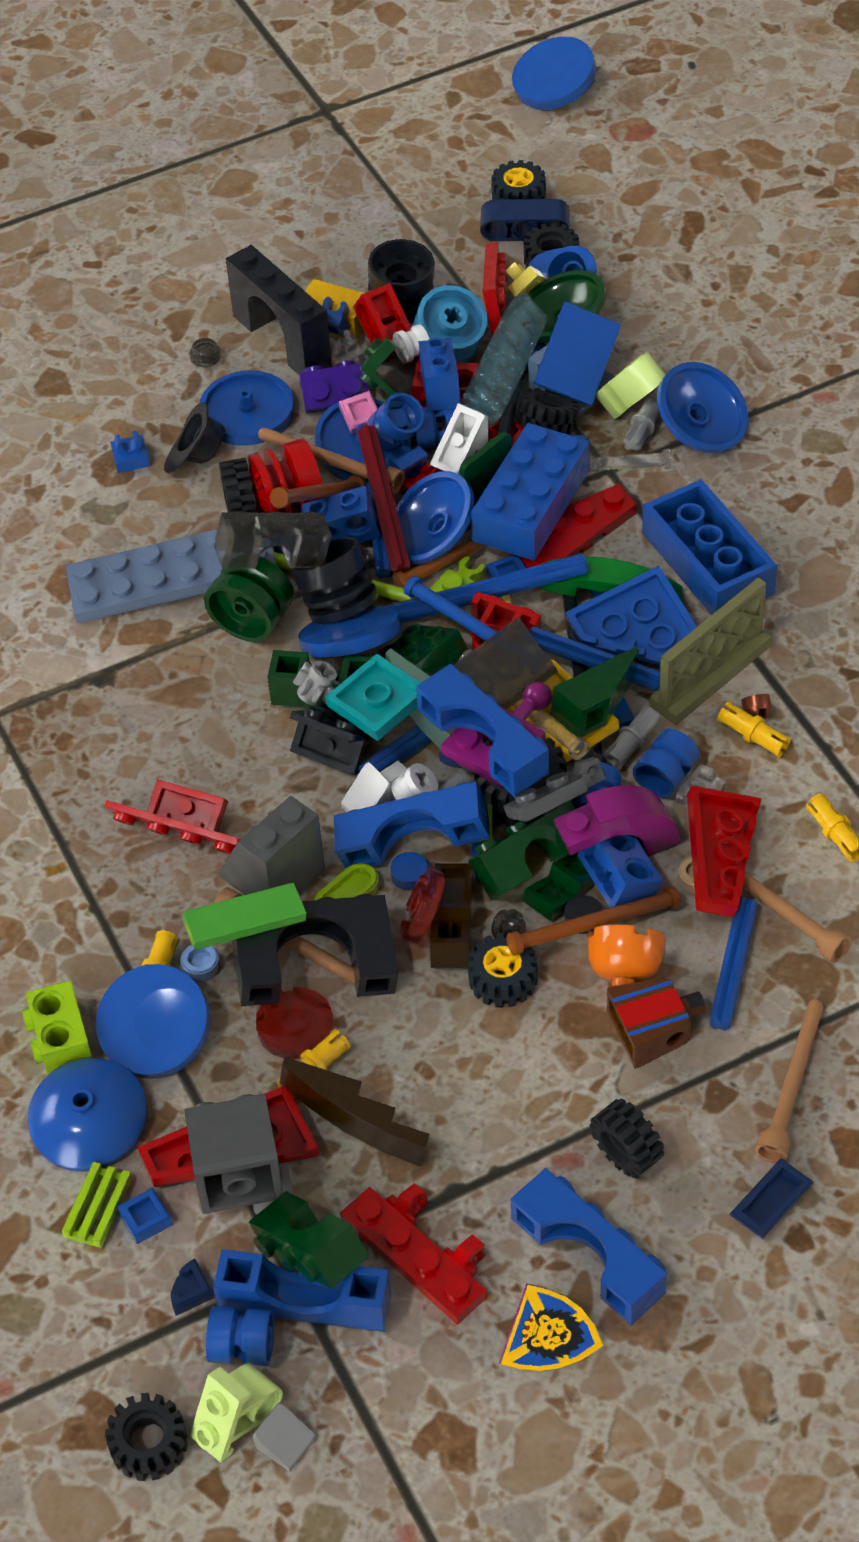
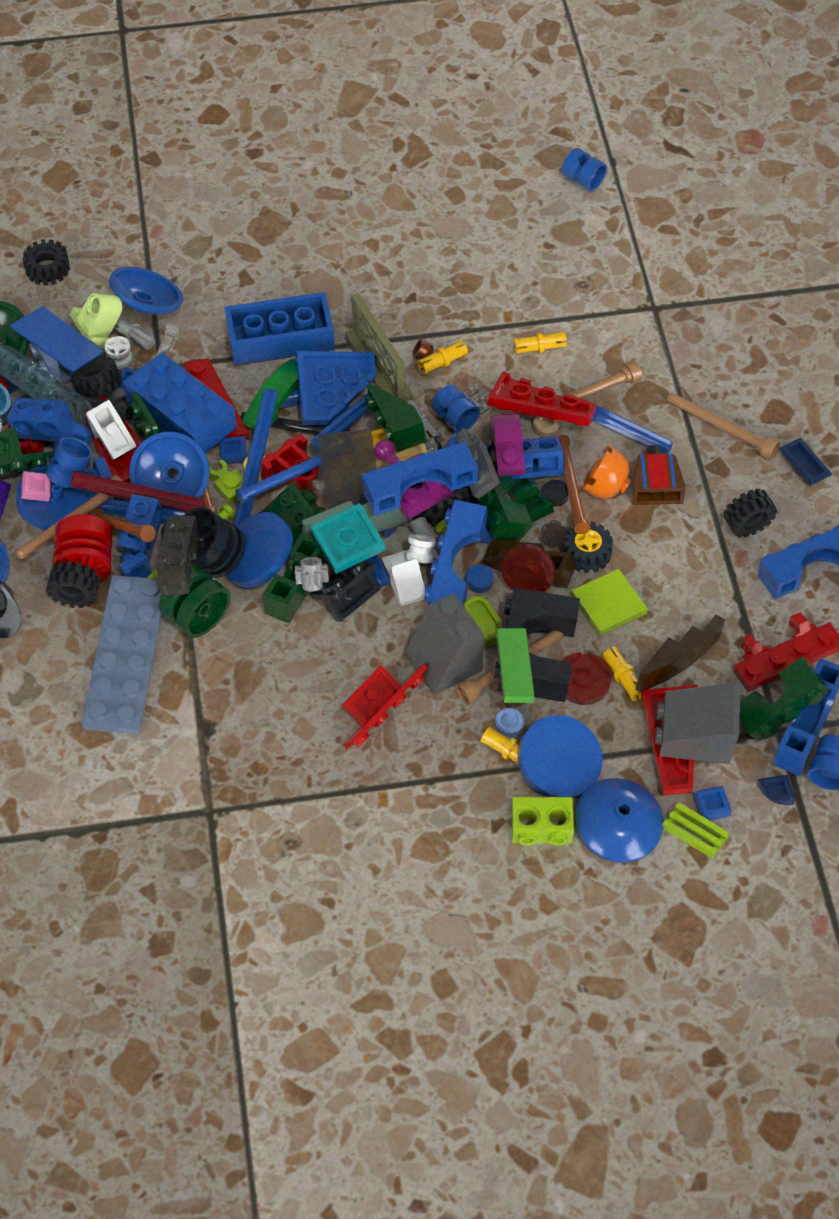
camera: 75 degrees left, 5 degrees up
(425, 1020) = (609, 602): none -> lime tile
(604, 422) = (119, 350): none -> white wheel
(711, 328) = (48, 272): none -> black tyre

